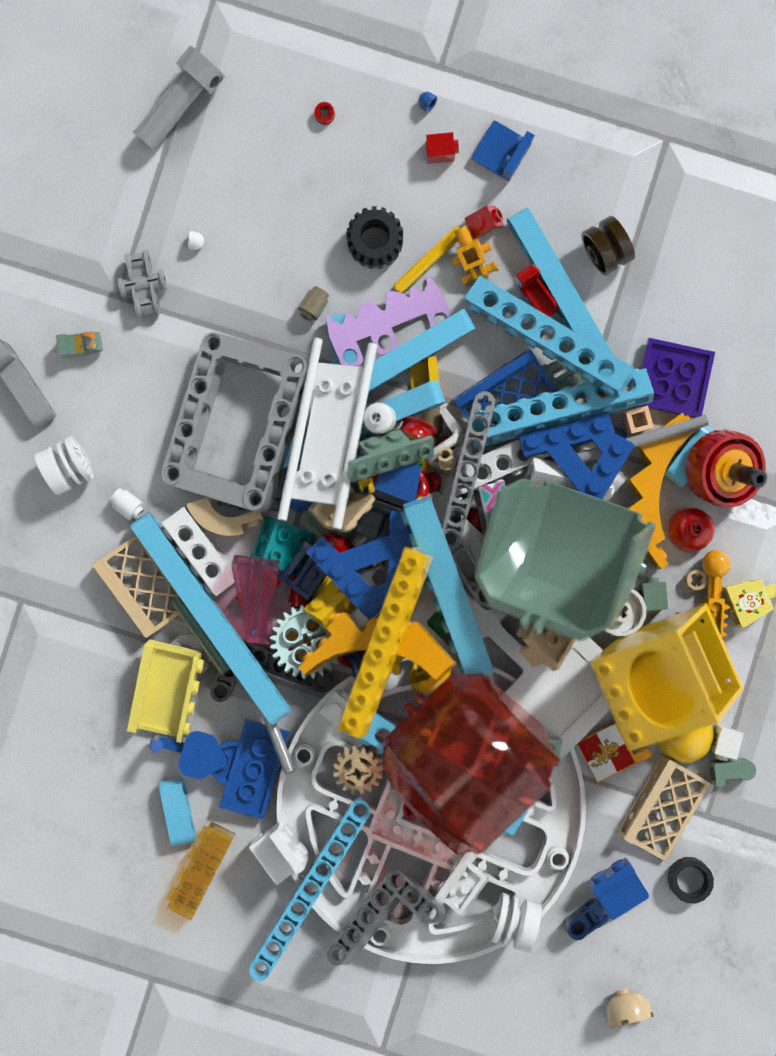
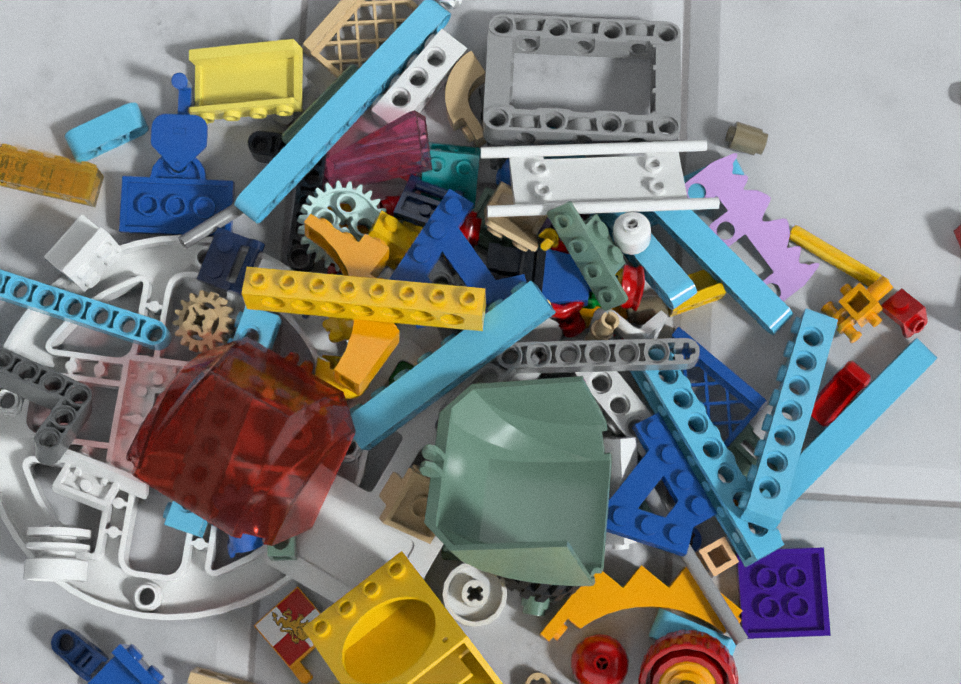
camera: 75 degrees right, 10 degrees down
(311, 744) = (222, 259): none -> dark blue plate
(379, 219) = (858, 170): black tyre -> none
(608, 245) = (925, 468): dark brown wheel -> none
(654, 594) = (506, 634): sand green brick -> none

